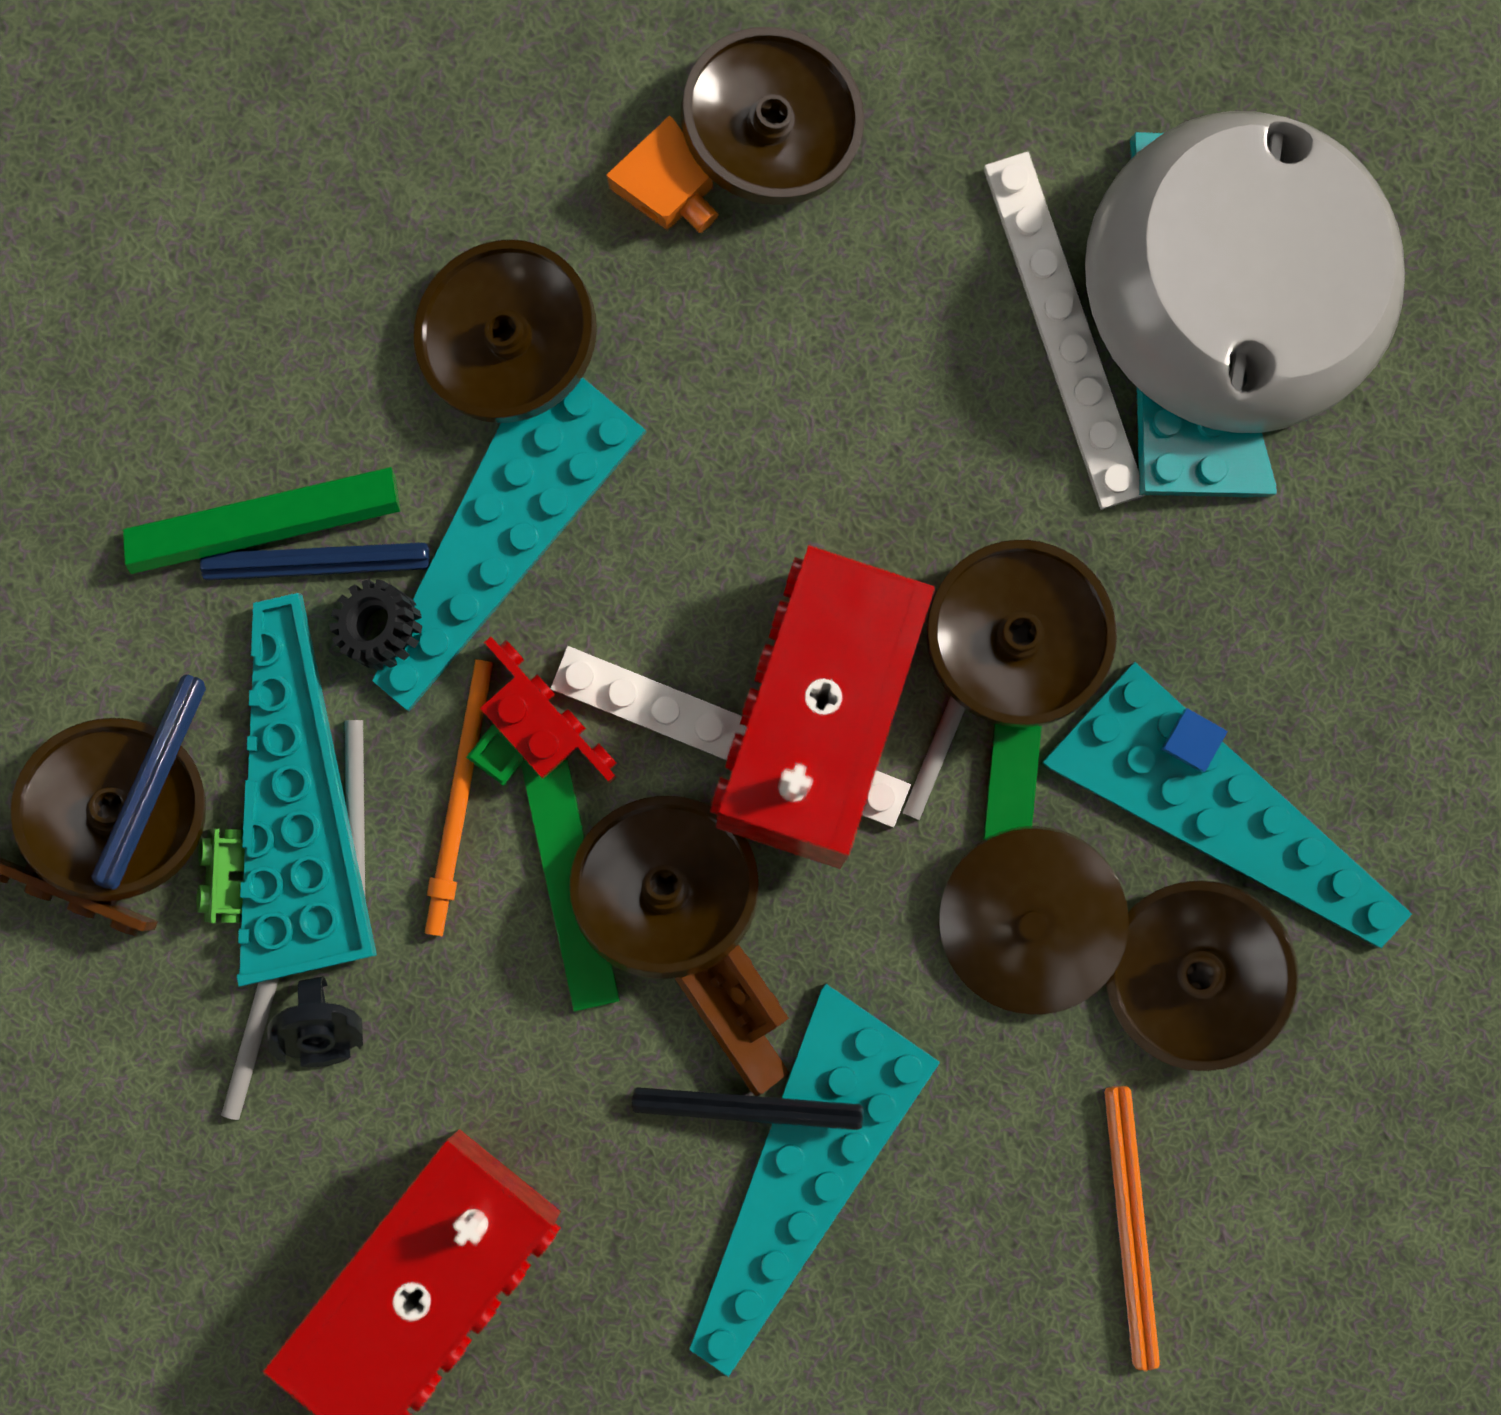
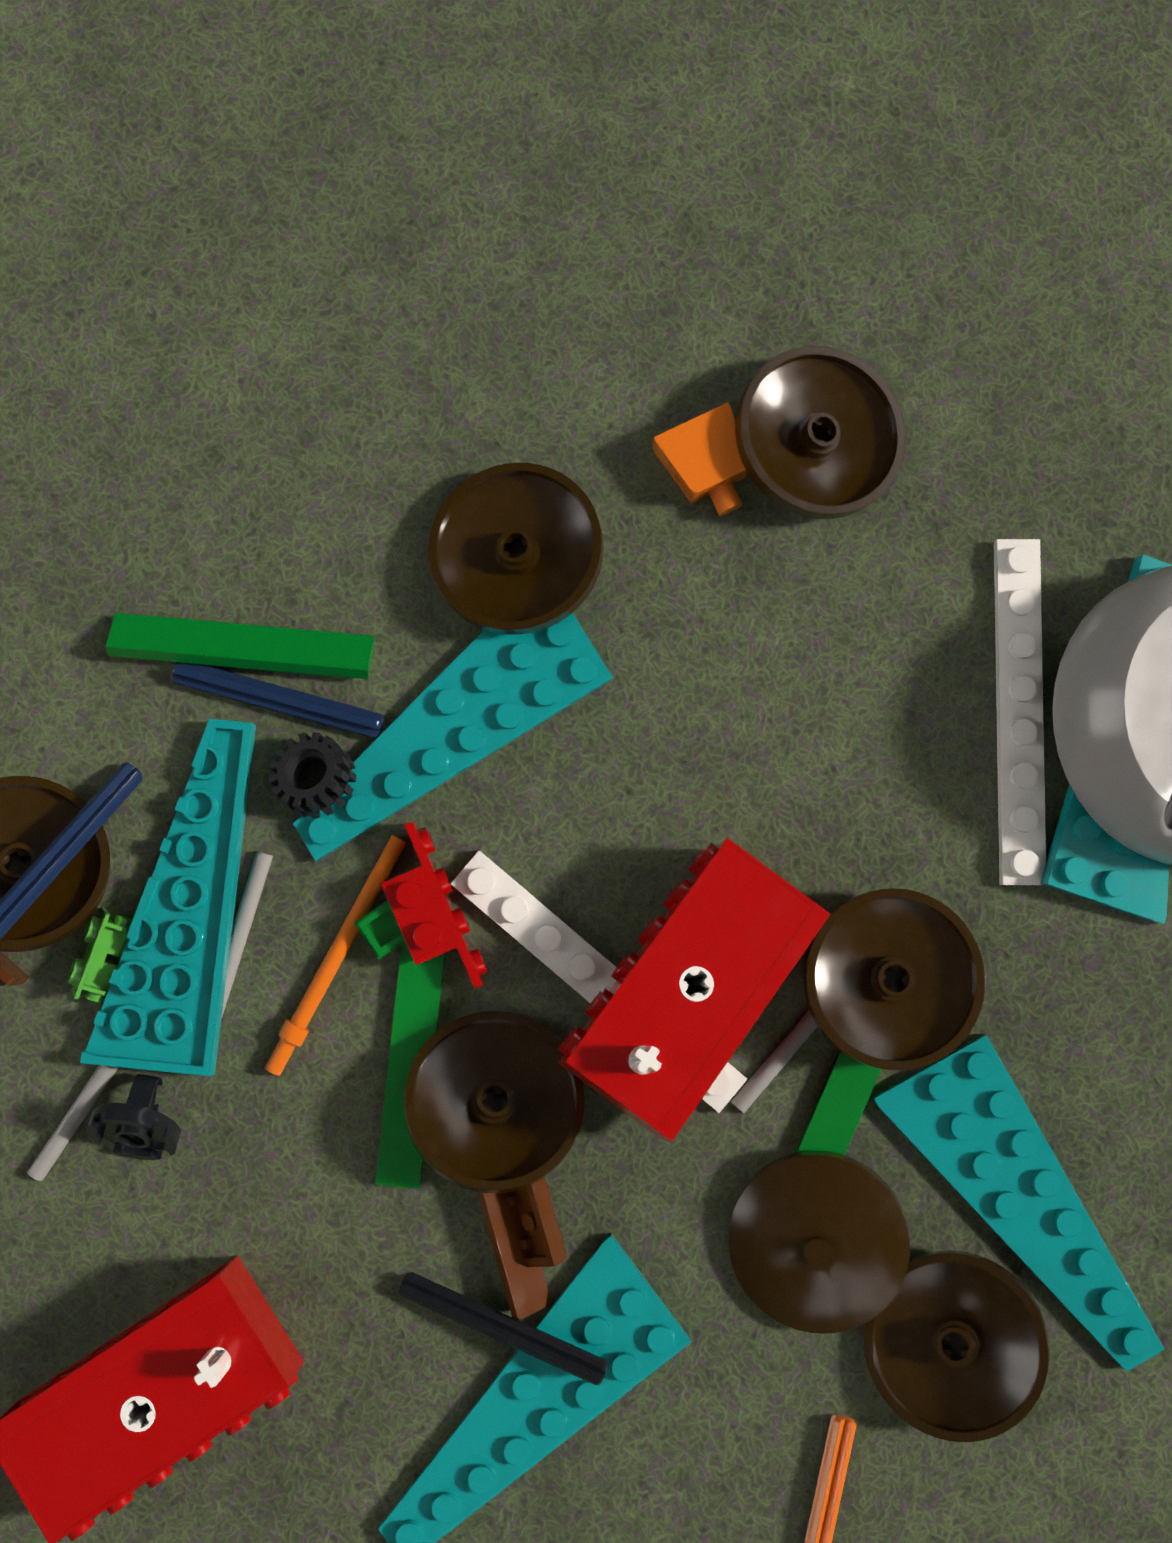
camera: 10 degrees right, 0 degrees up
(1194, 740) = (1018, 1127): blue tile -> none

